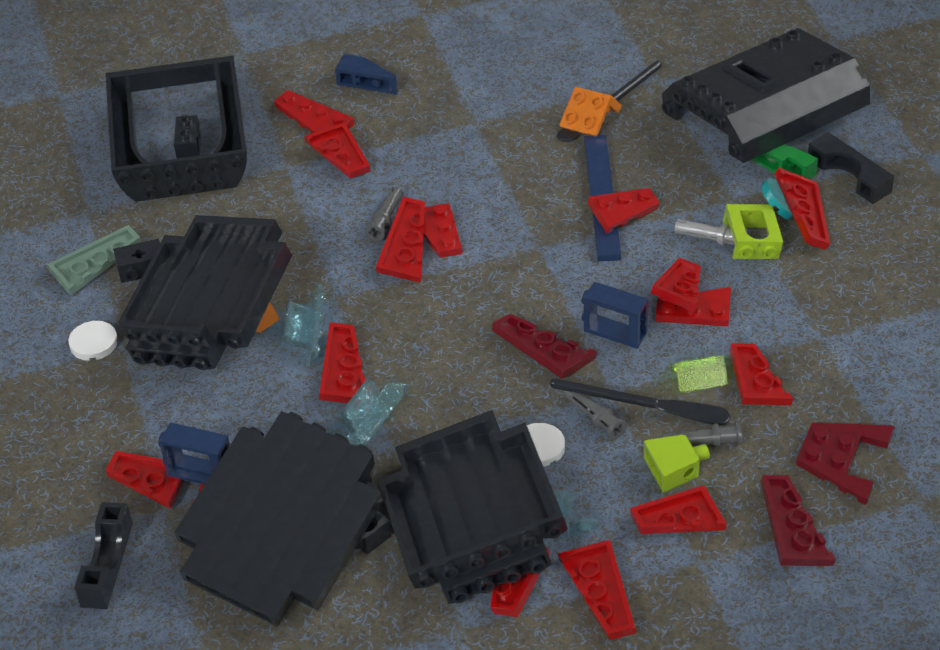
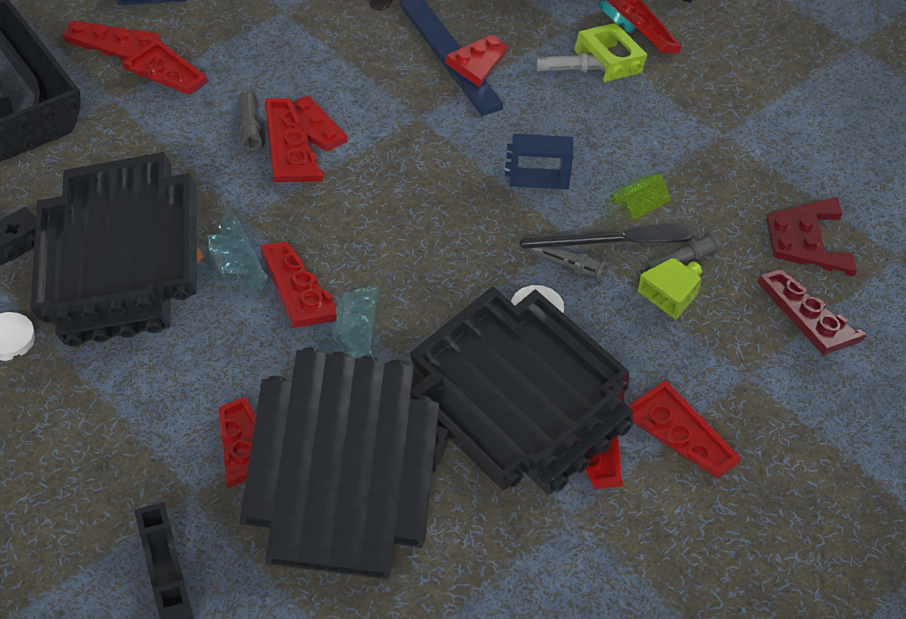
camera: 30 degrees left, 5 degrees up
(144, 476) = (157, 464): red wing -> none
(196, 440) = (212, 439): dark blue window -> none
(543, 346) = (480, 210): dark red wing -> none
(679, 284) = (577, 118): red wing -> none
(680, 512) = (707, 334): red wing -> none
(711, 309) = (603, 135): red wing -> none
(754, 377) = (692, 188): red wing -> none

